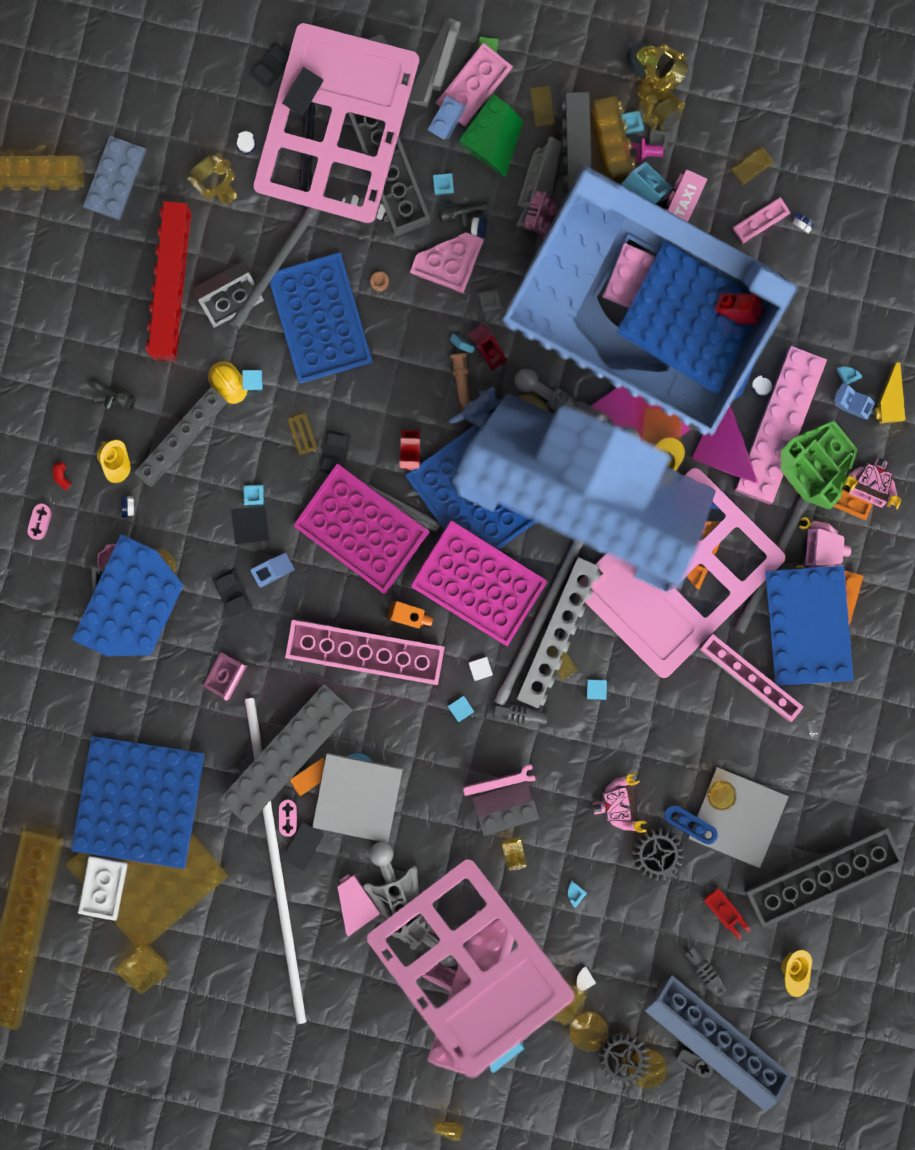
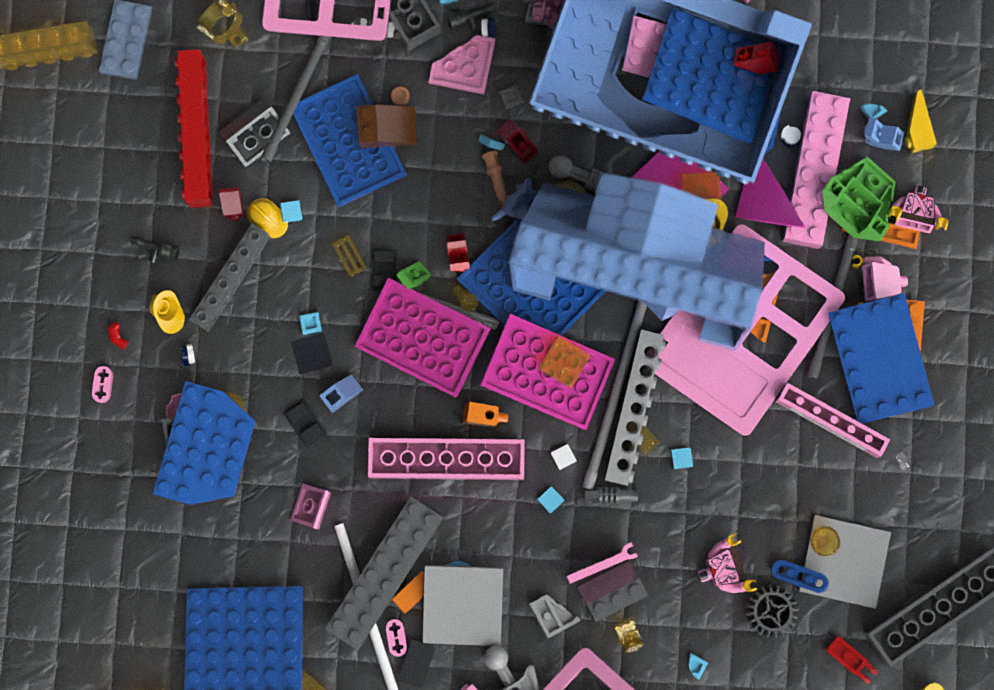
camera: 10 degrees left, 5 degrees down
(194, 363) = (232, 203): none -> slope
(360, 310) = (386, 125): none -> reddish brown slope
(363, 465) = (413, 275): none -> bright green slope
(410, 496) = (465, 298): none -> clear yellow cone
(442, 822) = (552, 616): none -> light grey wing
(496, 577) = (564, 362): none -> clear yellow plate

